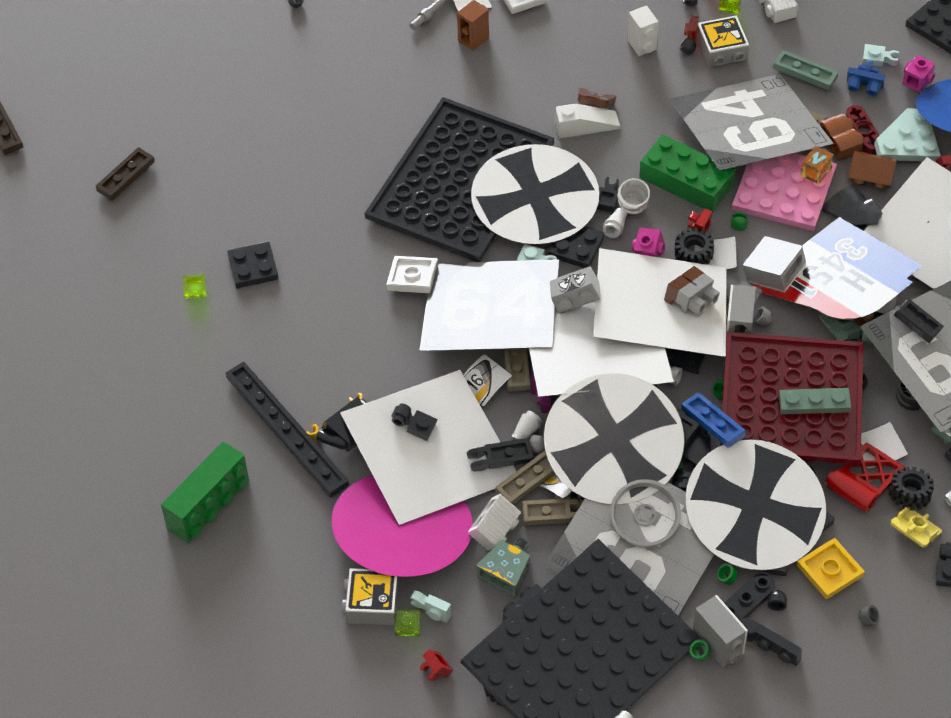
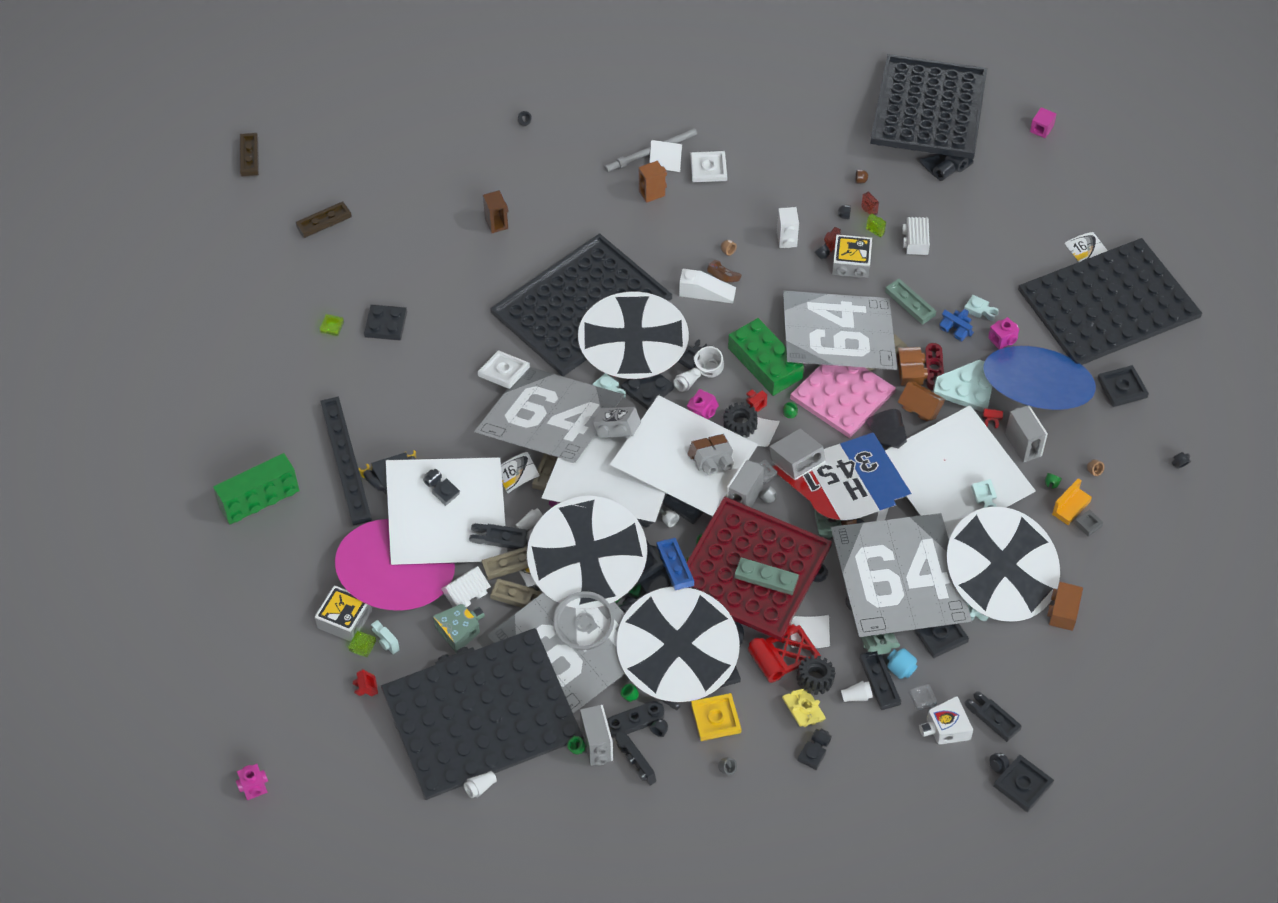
camera: 20 degrees right, 0 degrees up
(318, 107) = (495, 211): none -> reddish brown brick
(586, 71) = (728, 247): none -> medium nougat hinge
(817, 164) = (874, 382): clear yellow brick -> none
(918, 320) = (883, 538): black plate -> none

